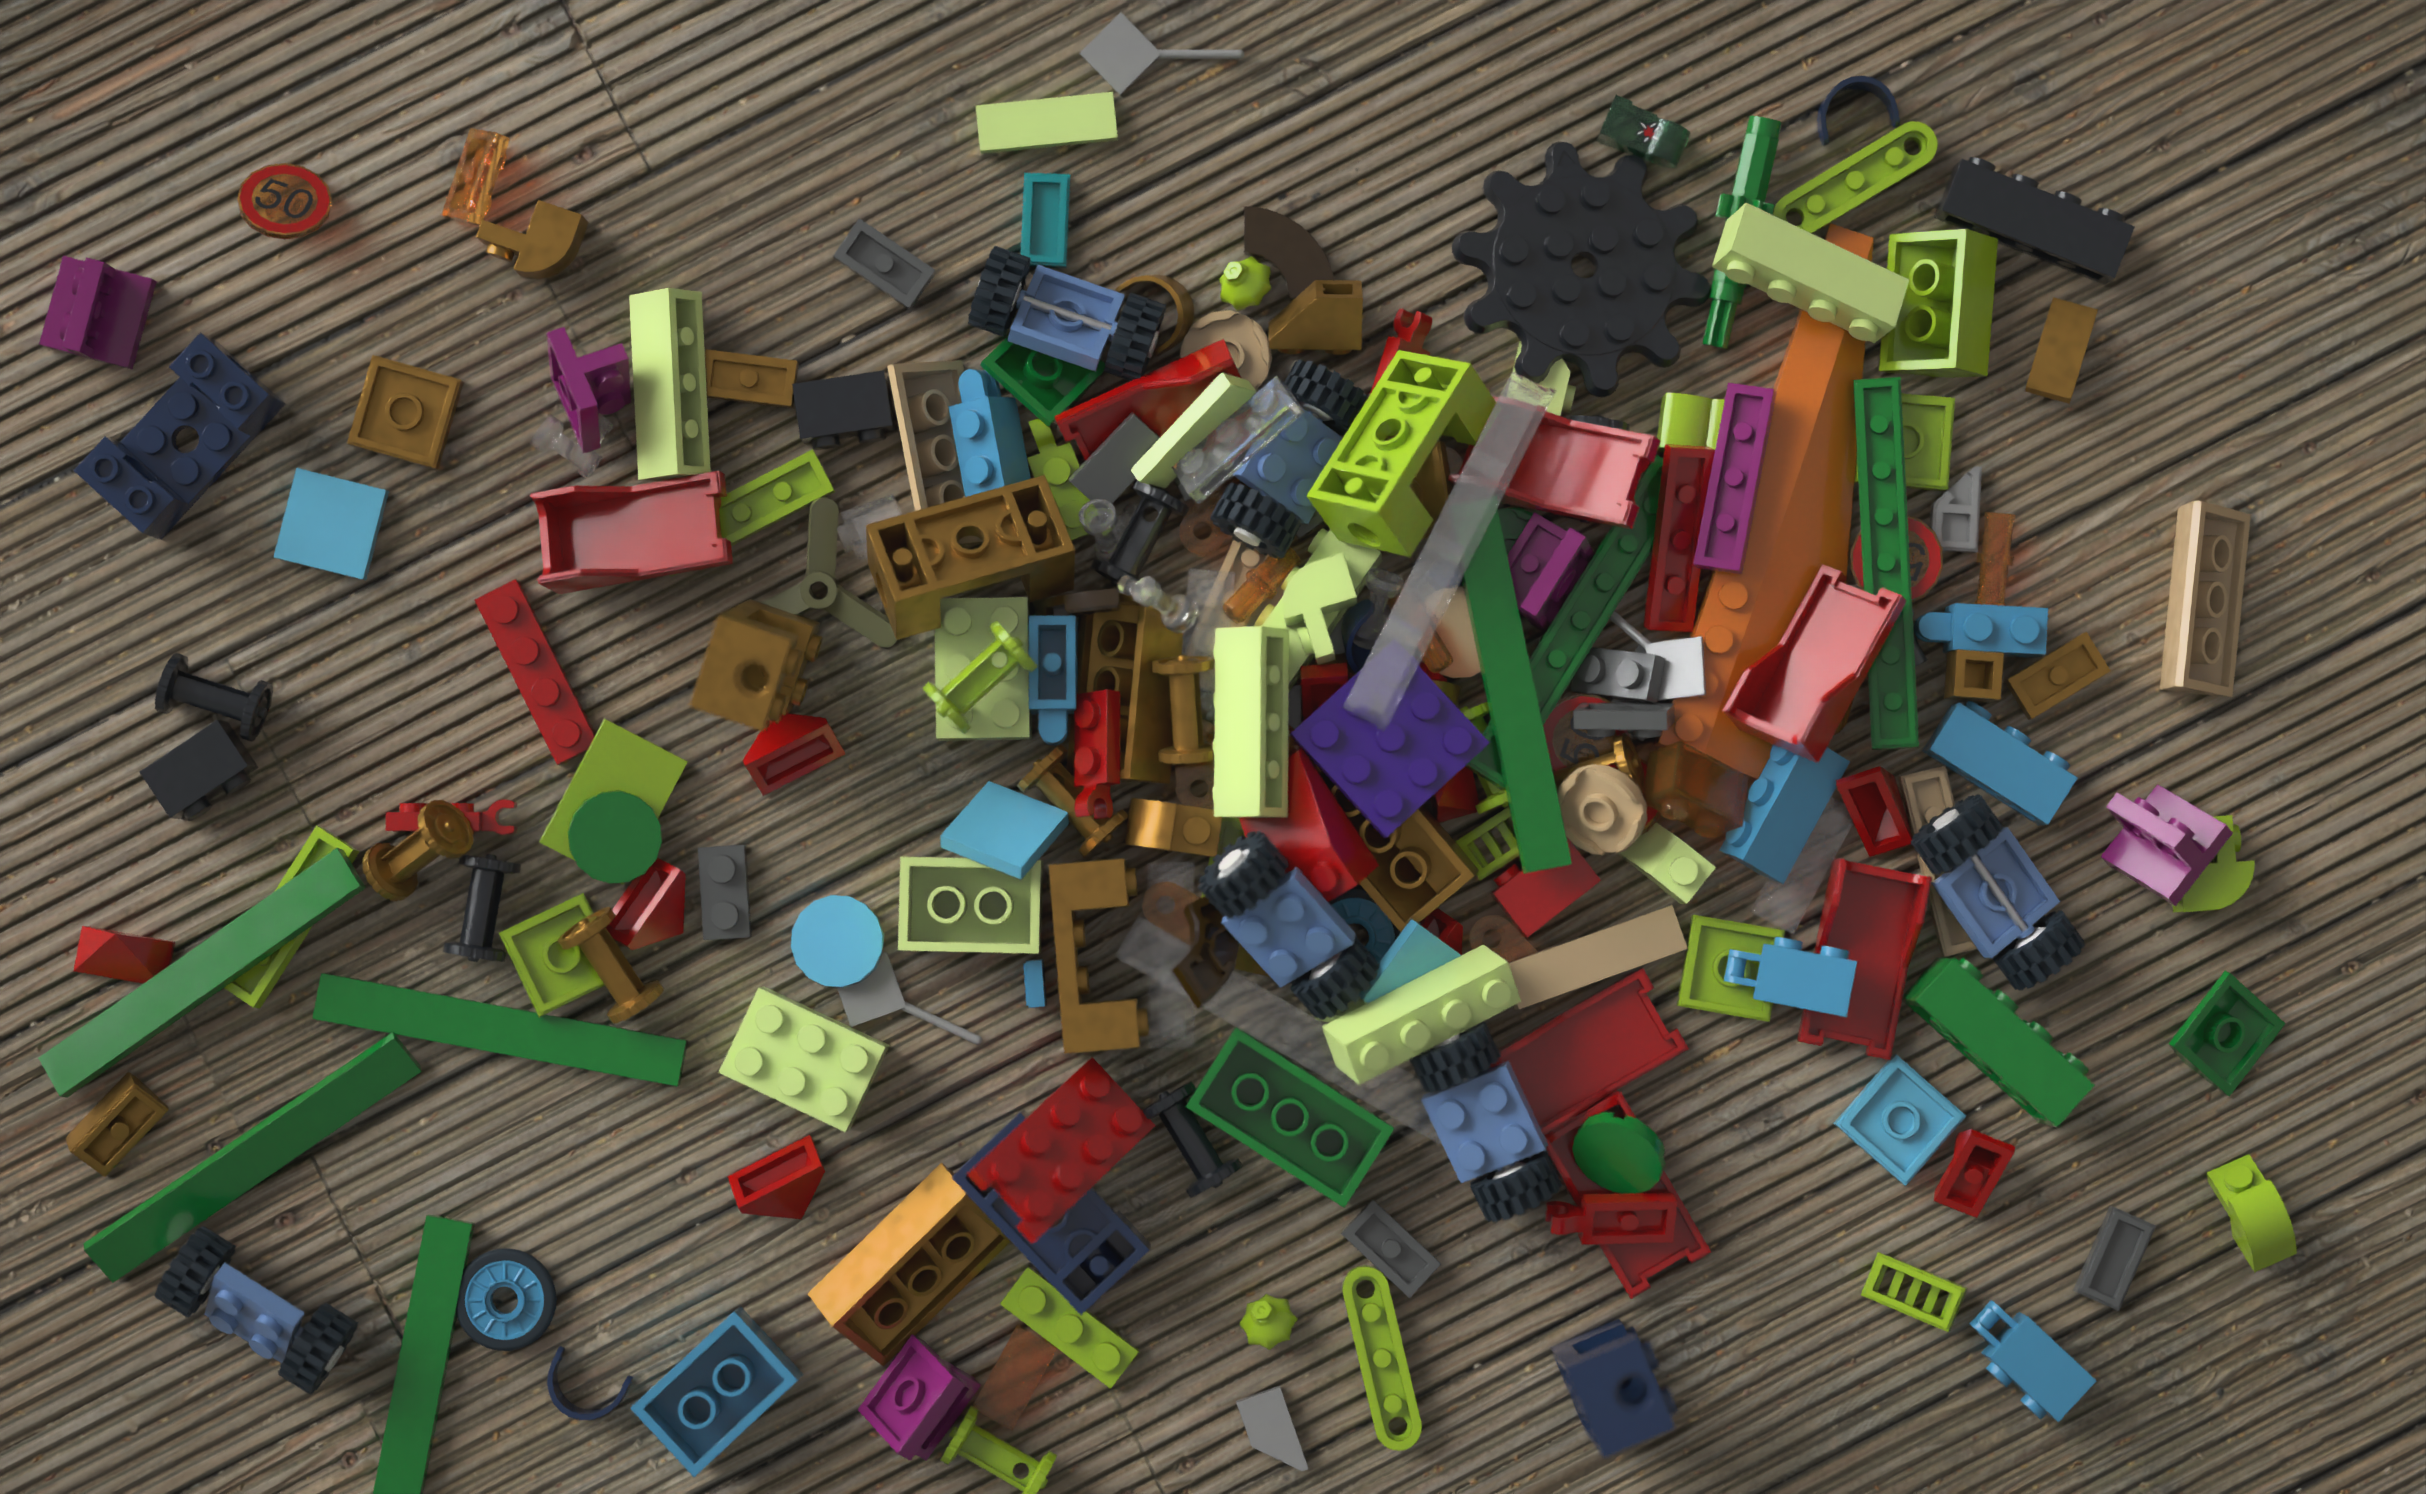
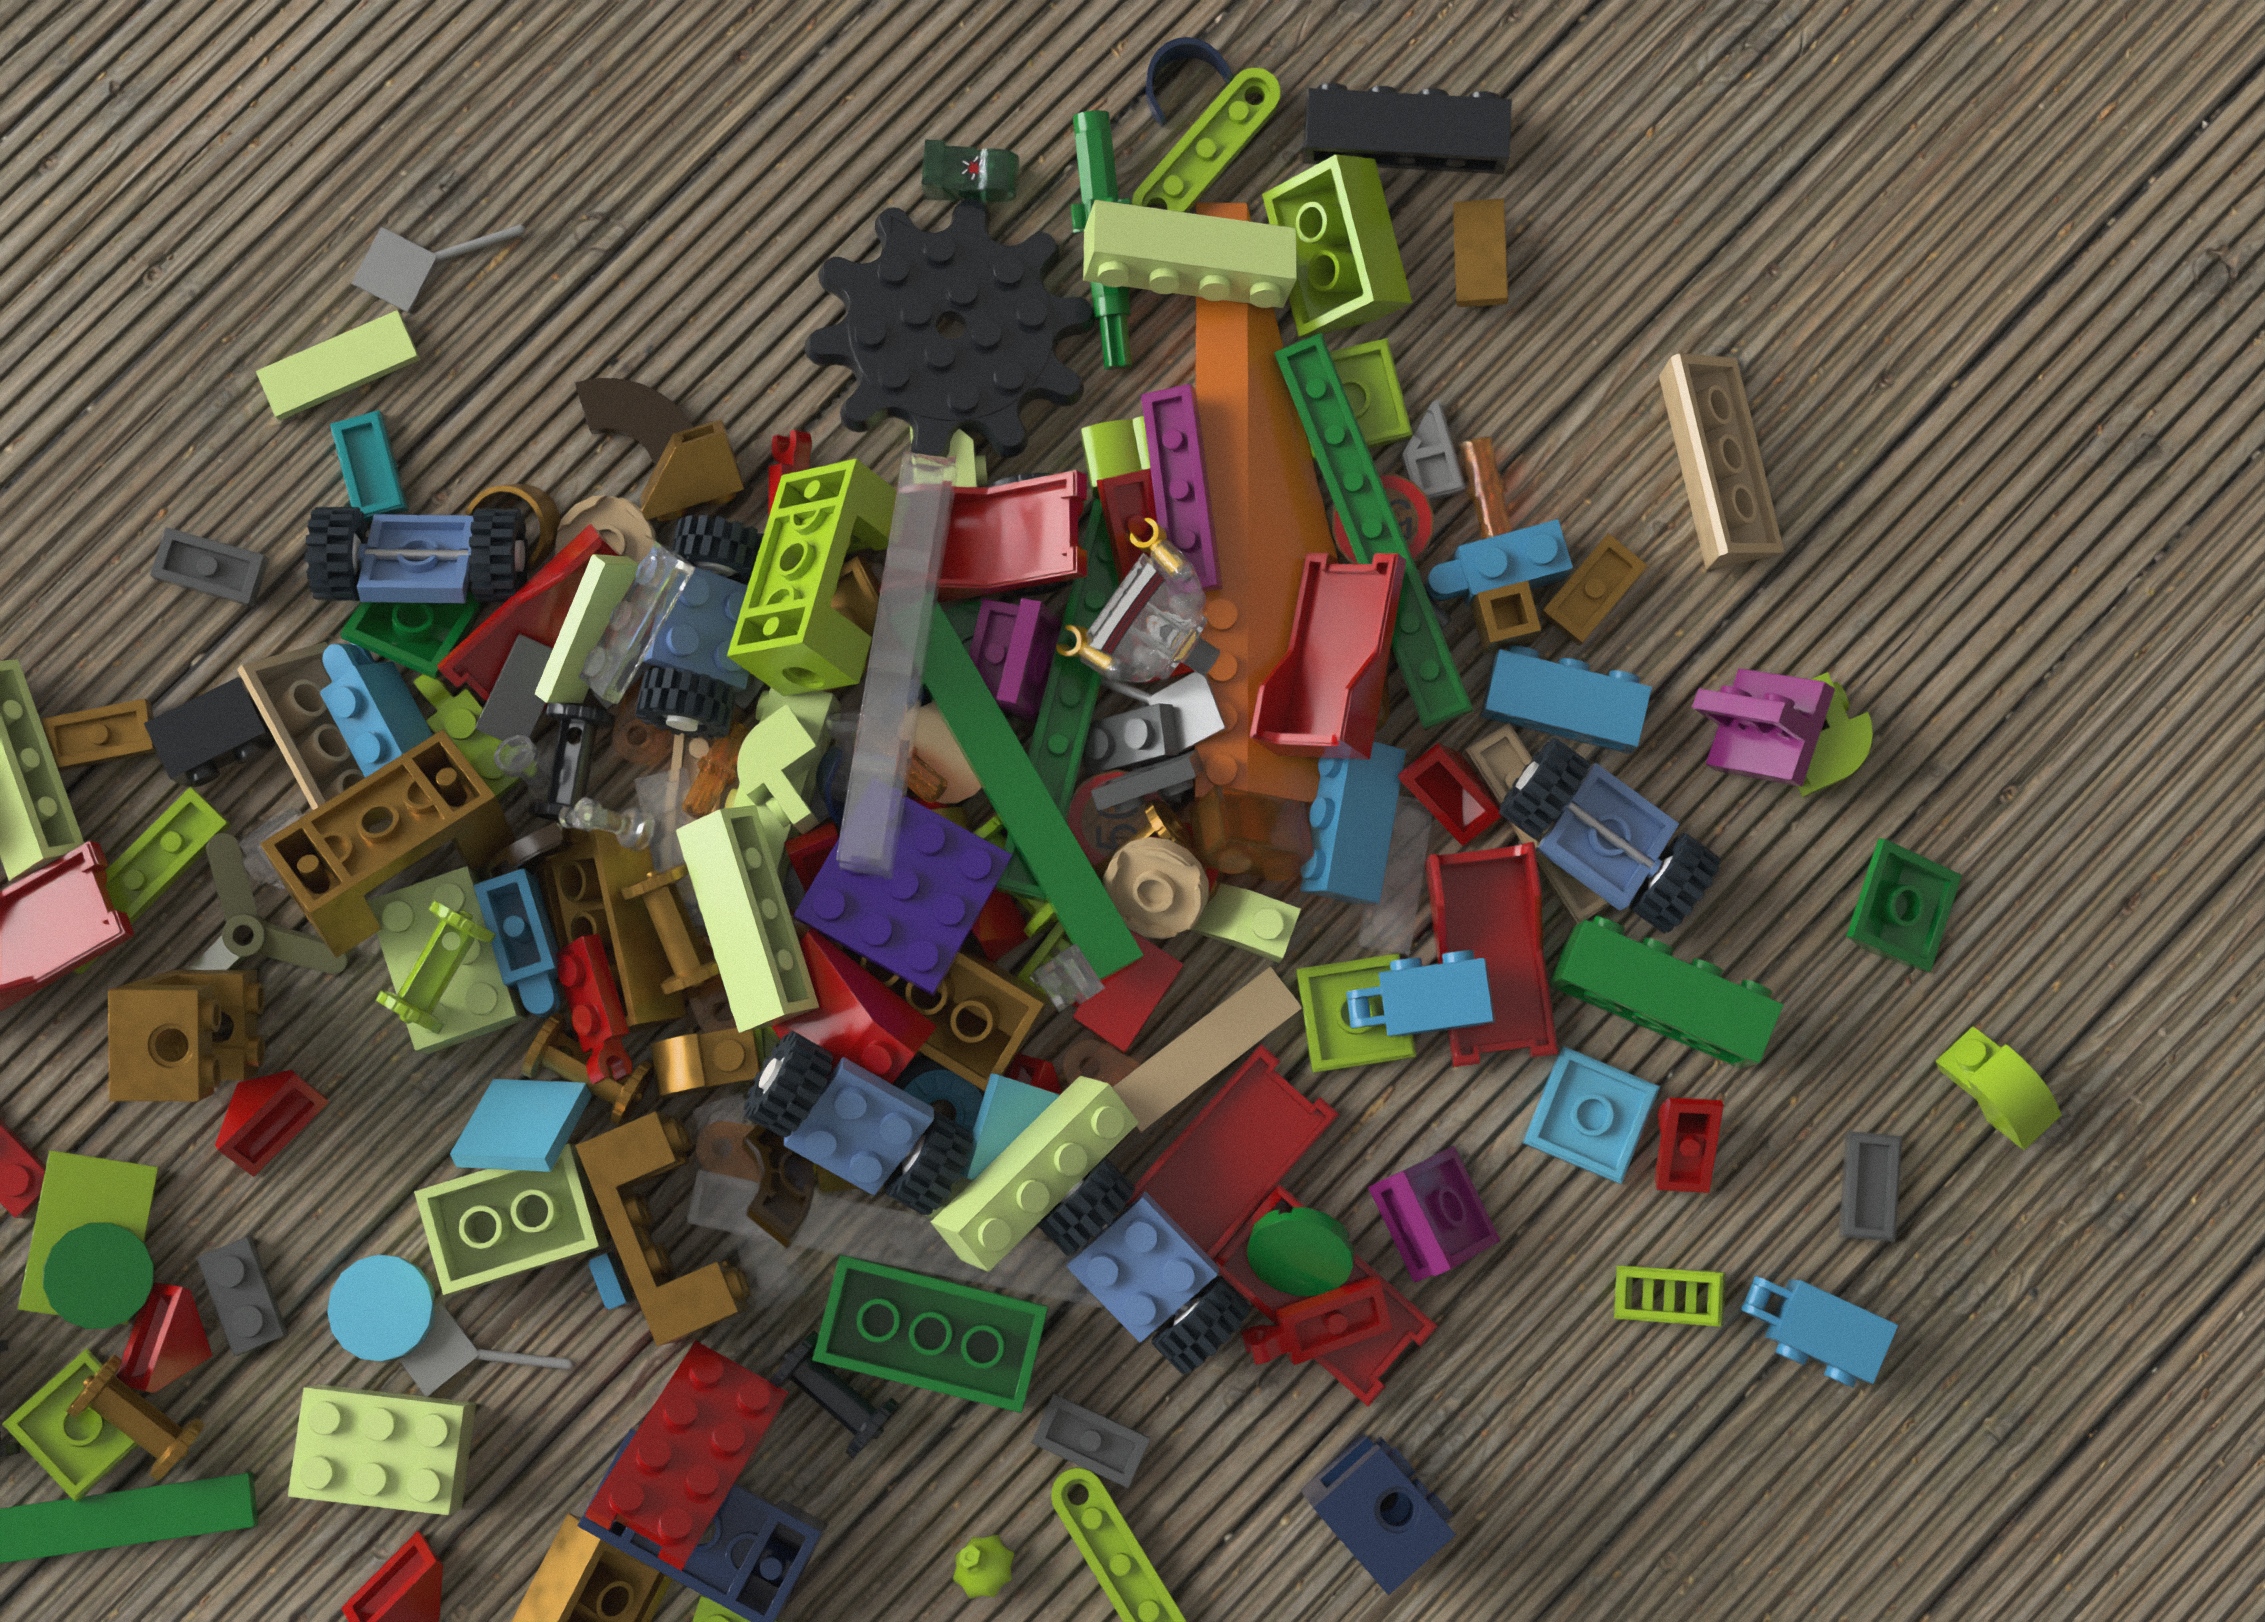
camera: 20 degrees left, 5 degrees down
(1245, 283) = (599, 461): lime piece -> none
(1501, 861) = (1067, 978): none -> clear slope
(1671, 582) = (1149, 619): none -> clear torso
(1739, 1159) = (1434, 1215): none -> magenta bracket

